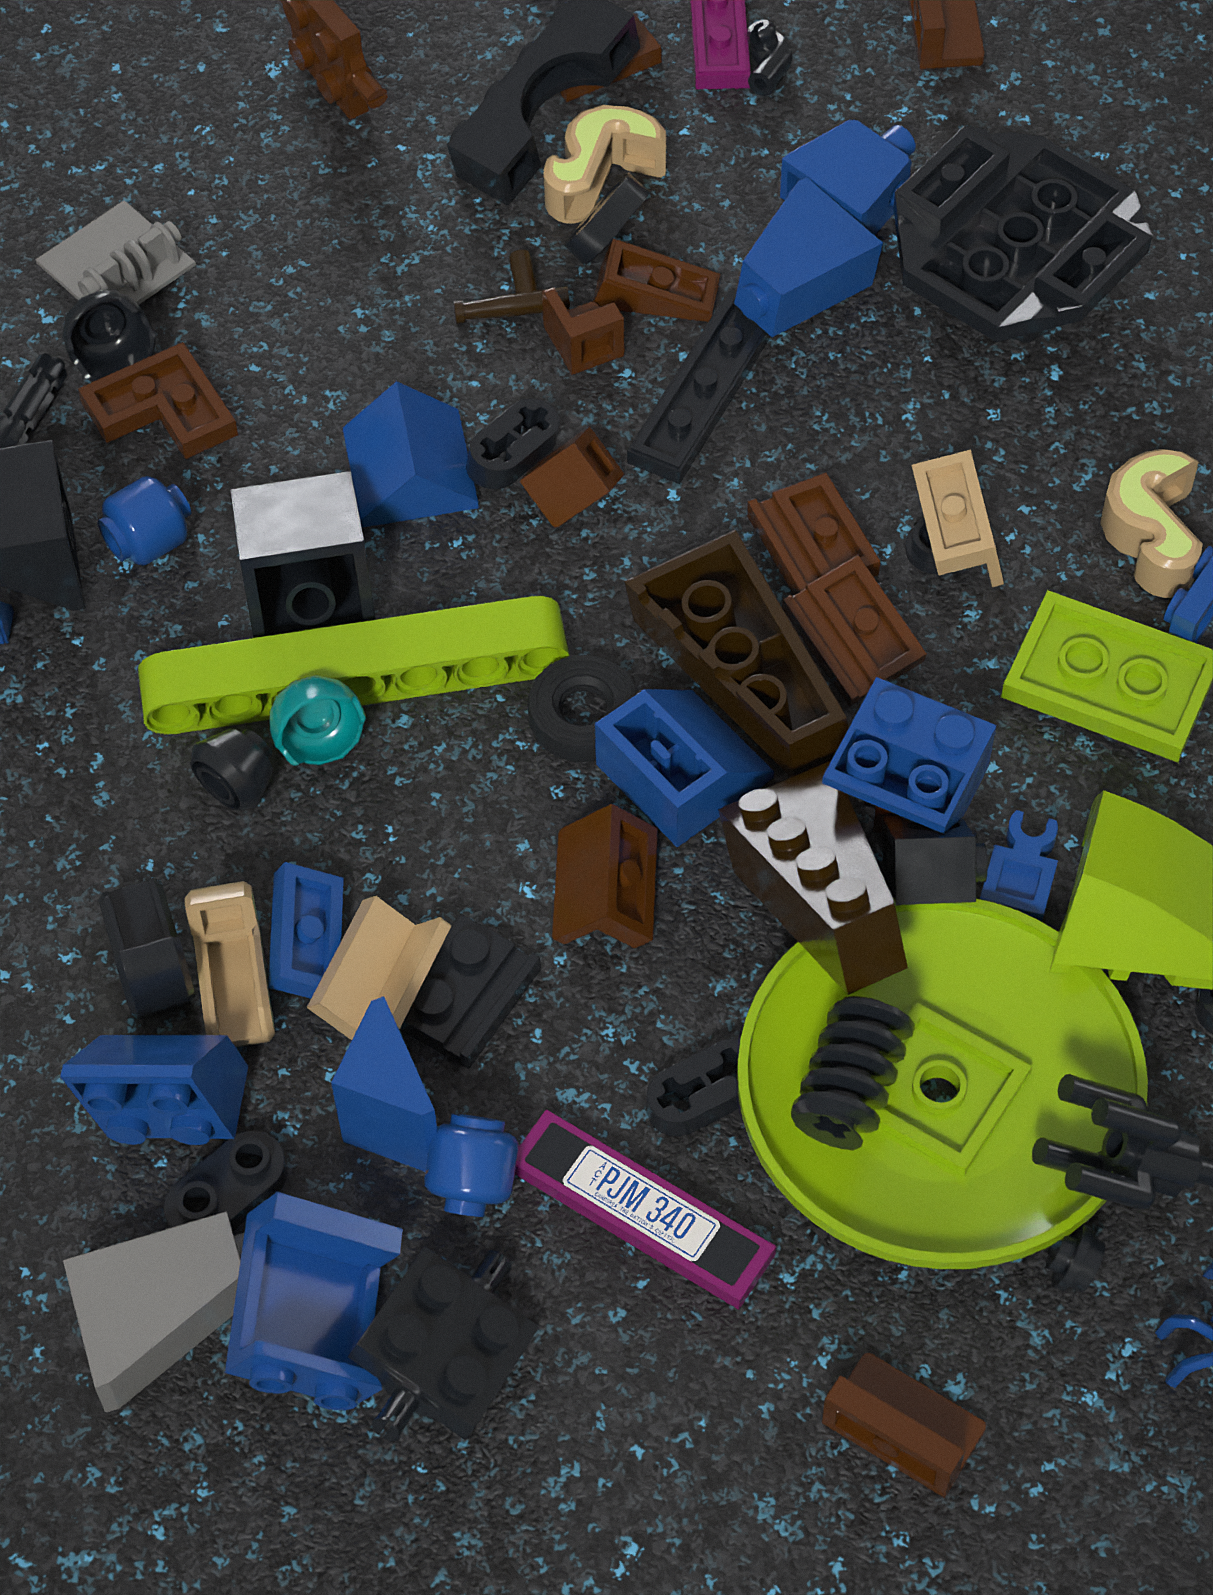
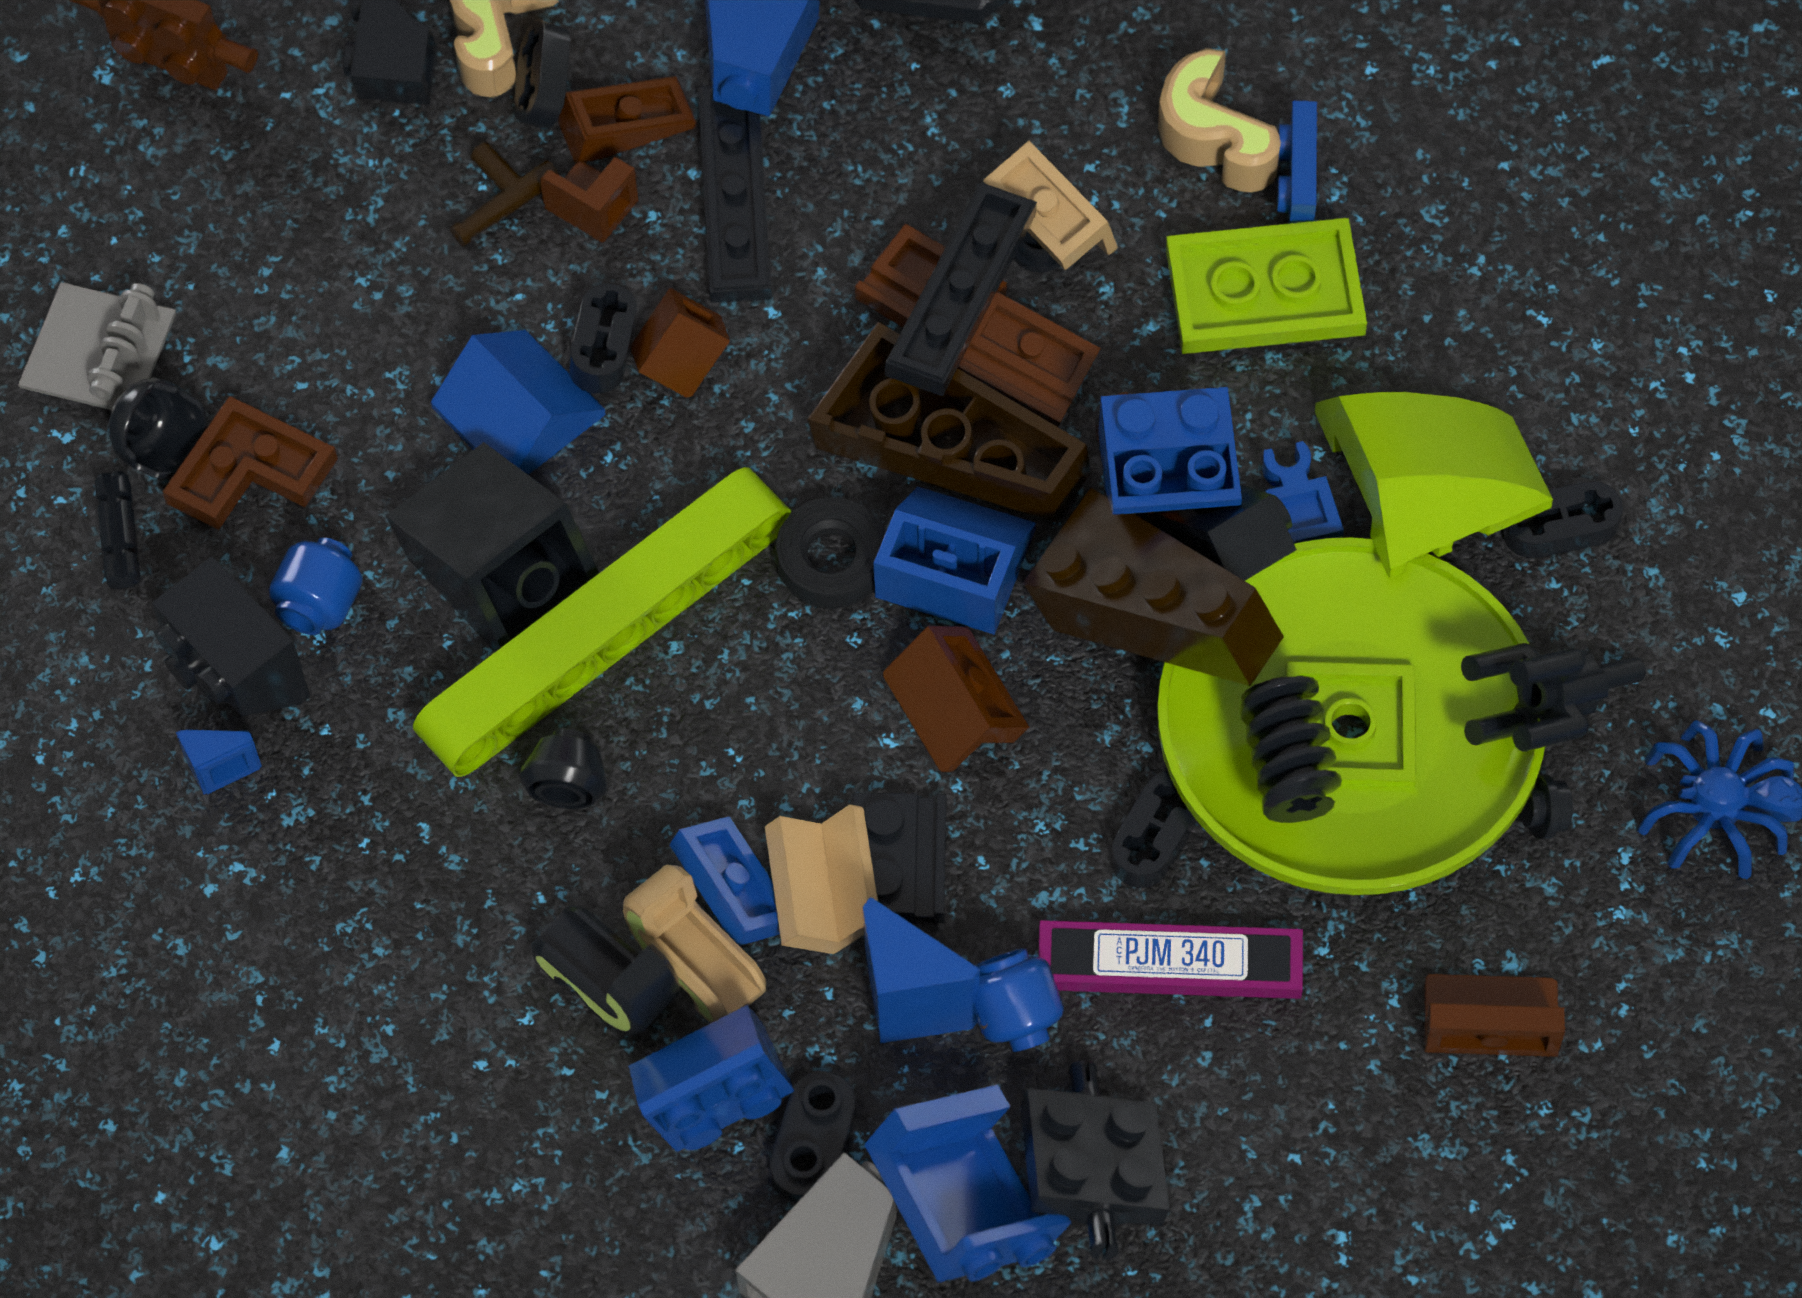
camera: 30 degrees left, 5 degrees up
(316, 721) = (611, 688): teal hair -> none
(824, 537) = (960, 289): none -> black tile

